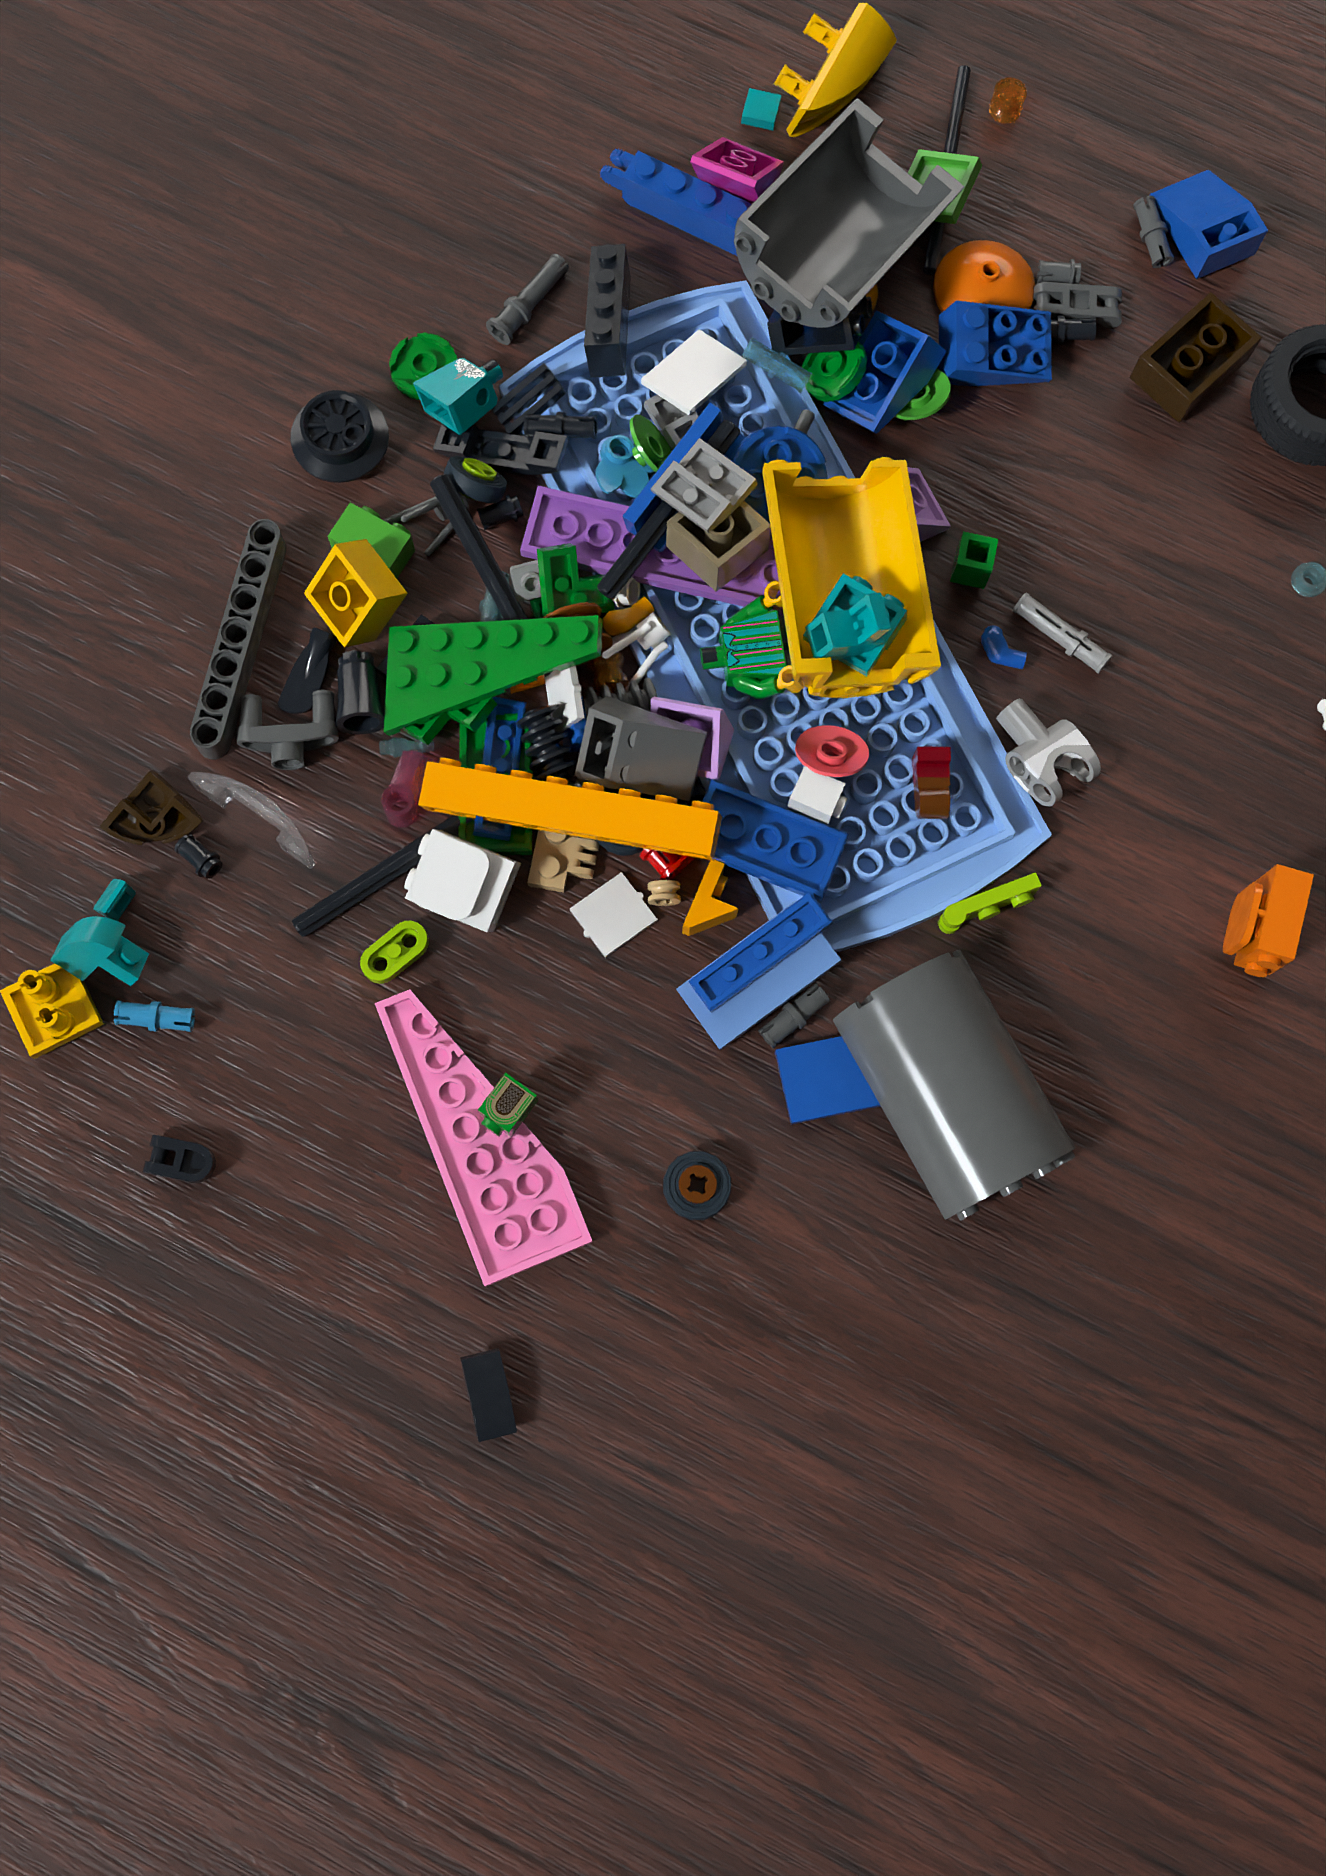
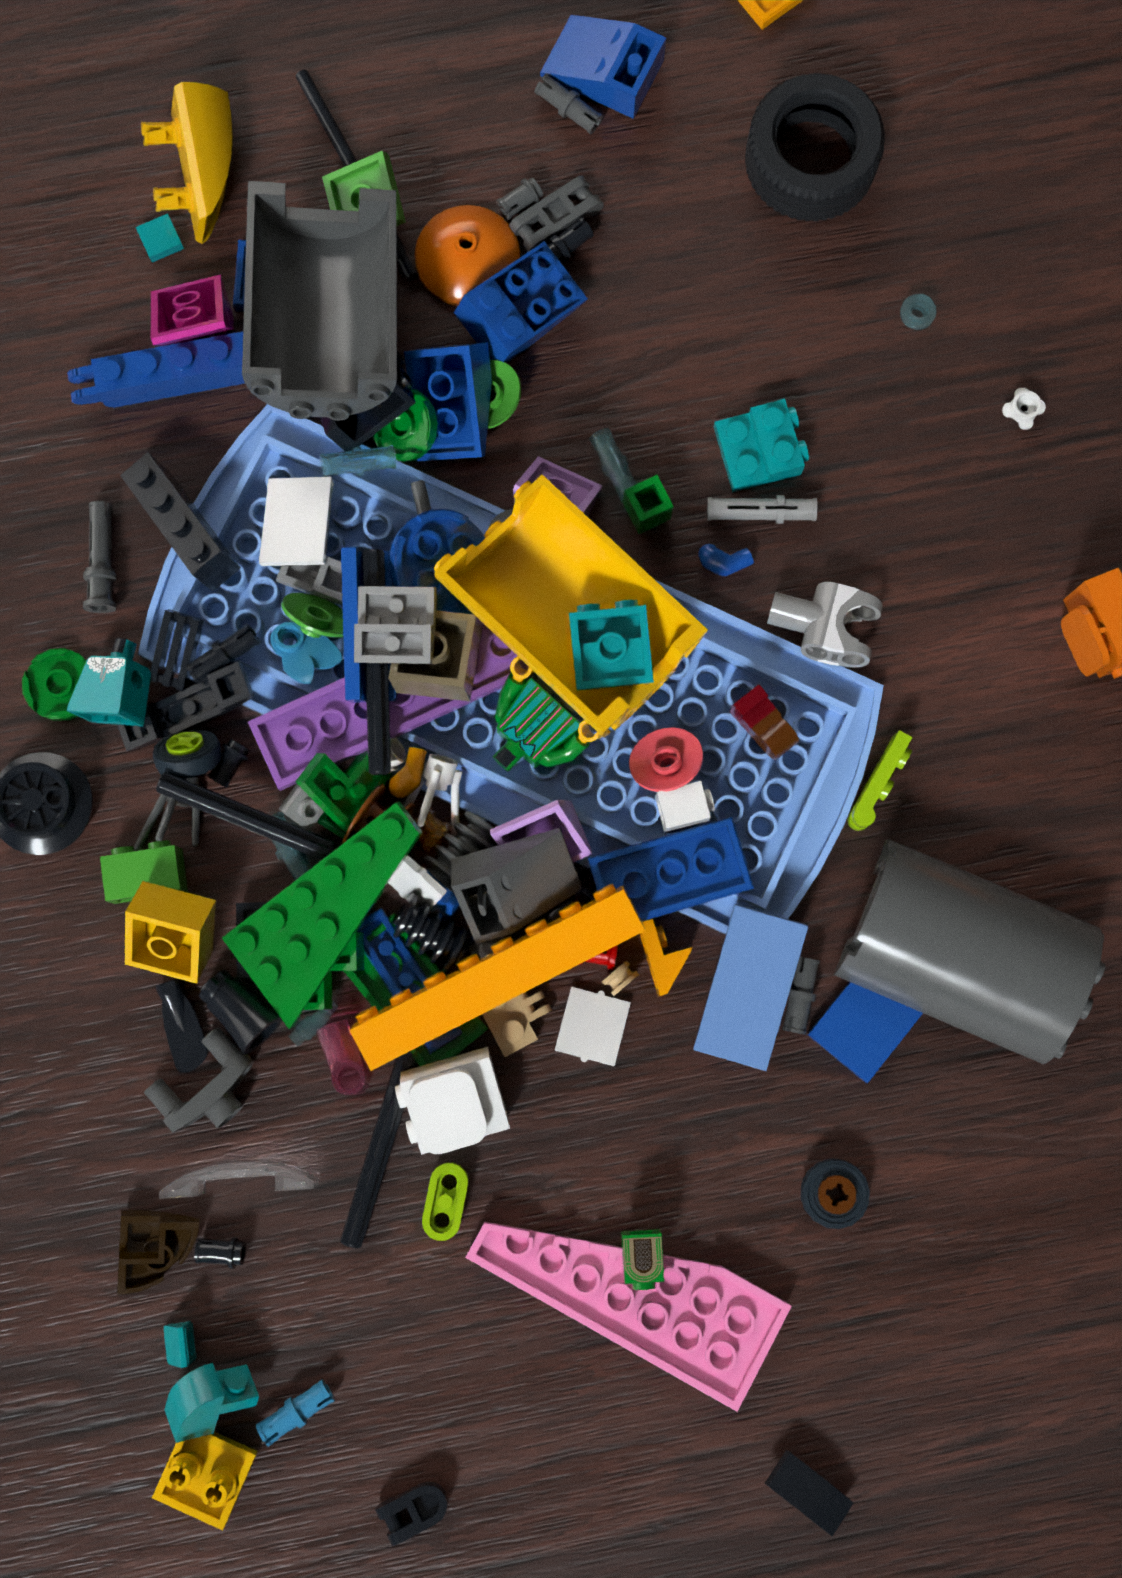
camera: 35 degrees left, 5 degrees up
(241, 654) = (87, 1030): dark grey beam -> none
(760, 952) = (740, 970): blue tile -> none
(851, 630) = (616, 661): teal brick -> none
(973, 513) = (613, 462): none -> clear light blue pin
(1014, 94) = (362, 67): clear orange wheel -> none
(1100, 587) = (761, 445): none -> teal plate
(1195, 357) = (689, 191): dark brown brick -> none

